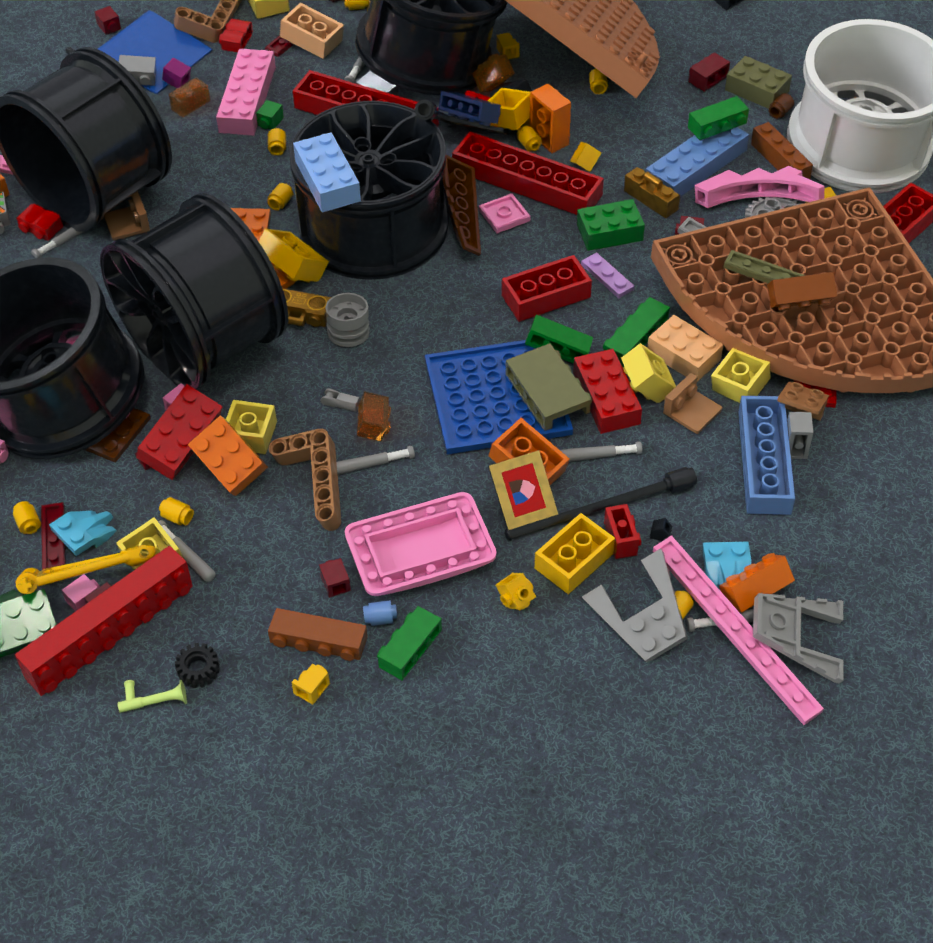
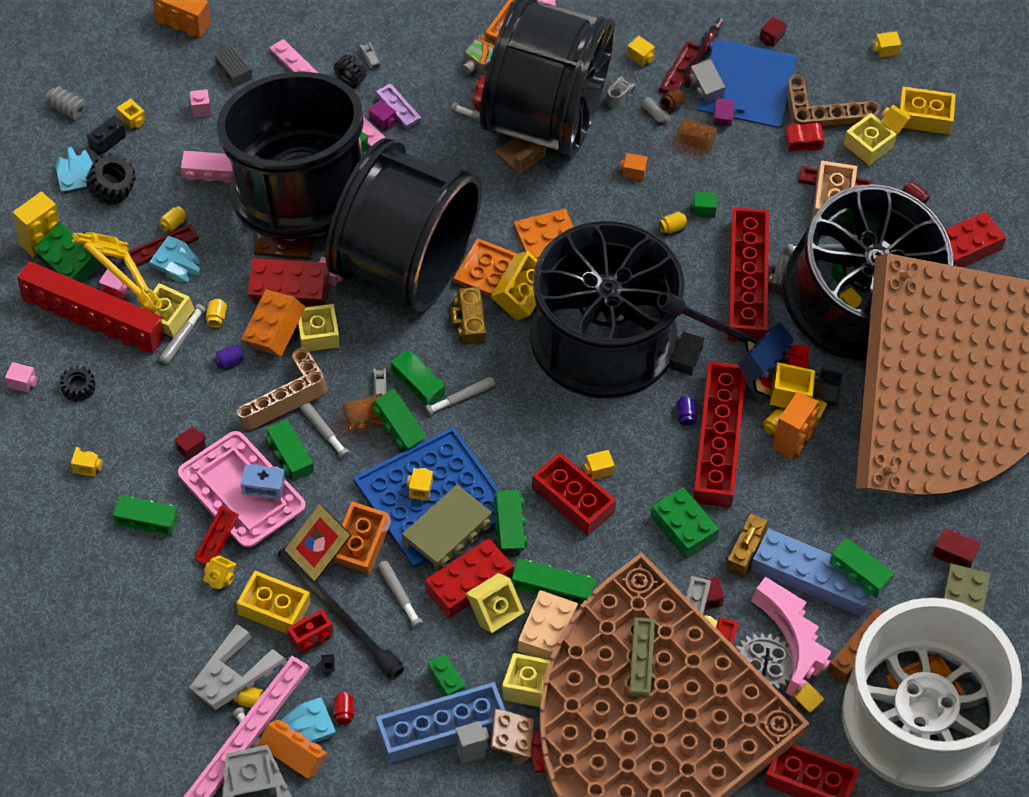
camera: 65 degrees right, 5 degrees up
(132, 703) = (48, 381): yellowish green piece -> none
(159, 719) = (21, 377): none -> bright pink brick
(197, 147) = (634, 166): none -> orange brick
(240, 515) = (228, 357): none -> dark purple brick
(245, 91) = (727, 173): bright pink brick -> none
(317, 634) = (131, 451): dark orange brick -> none
(327, 172) = (556, 258): light blue brick -> none
(347, 319) = (464, 354): light grey wheel -> none
(352, 367) = (418, 378): none -> green brick
(379, 613) = (167, 485): medium blue brick -> none
(387, 340) = (475, 389): none -> light grey piece
(387, 492) = (289, 450): none -> green brick
(401, 389) = (397, 420): none -> green brick
(427, 515) = (263, 481): none -> medium blue brick
(462, 202) = (650, 388): reddish brown wedge -> none
(470, 581) = (217, 535): none -> red tile
(487, 392) = (420, 484): none -> yellow brick
(488, 191) = (686, 411): none -> dark purple brick
(493, 72) = (841, 358): clear orange brick -> none
(504, 213) = (664, 433): bright pink plate -> none
(519, 260) = (599, 465): none -> yellow brick
(585, 156) = (774, 476): yellow panel -> none
(607, 275) = (622, 541): lavender plate -> none
(689, 406) = (480, 650): medium nougat bracket -> none
(715, 438) = (445, 676): none -> green brick
(718, 530) = (343, 708): none -> red brick
(802, 291) = (621, 689): dark orange brick -> none

